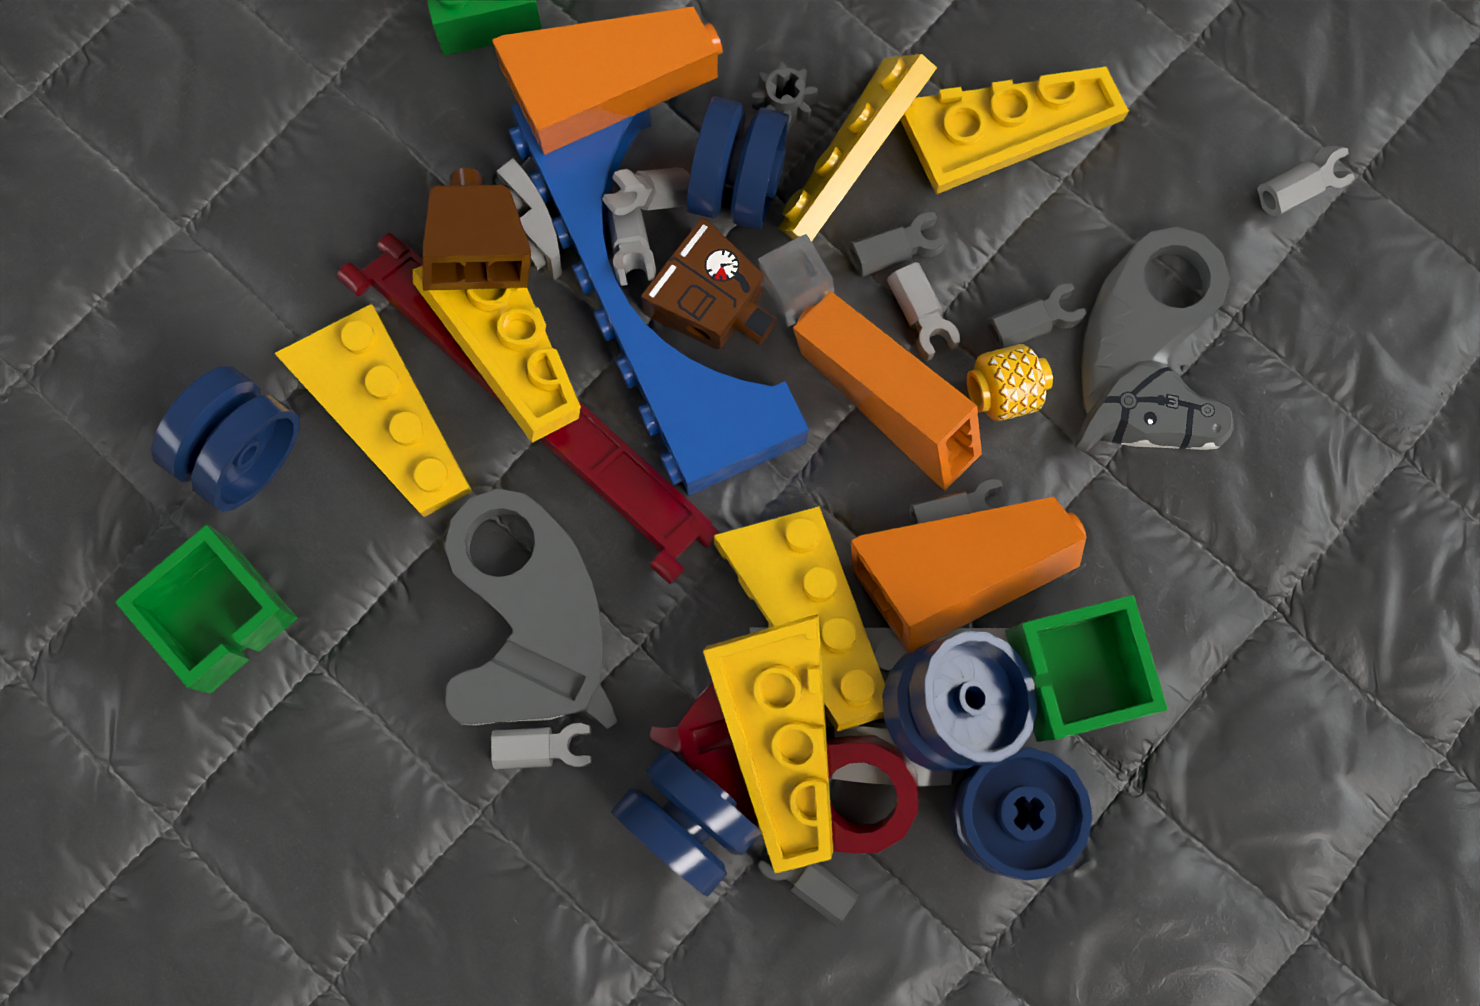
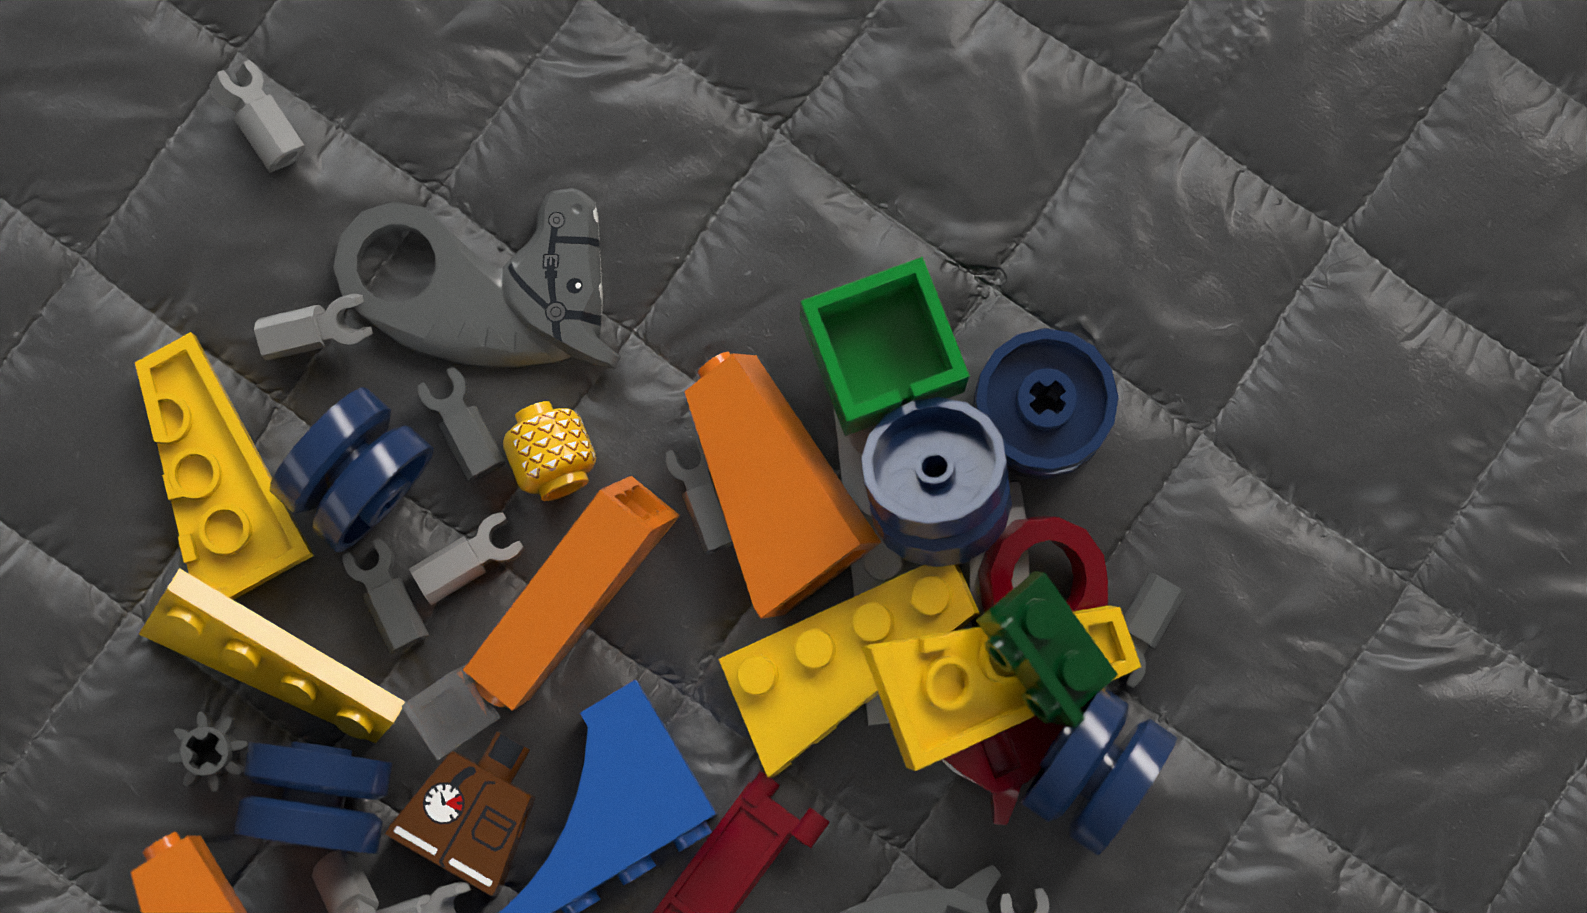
camera: 90 degrees left, 5 degrees up
(798, 783) = (1047, 650): none -> dark green bracket
(1008, 216) = (351, 469): none -> dark blue wheel
(1125, 202) = (308, 329): none -> light grey bar

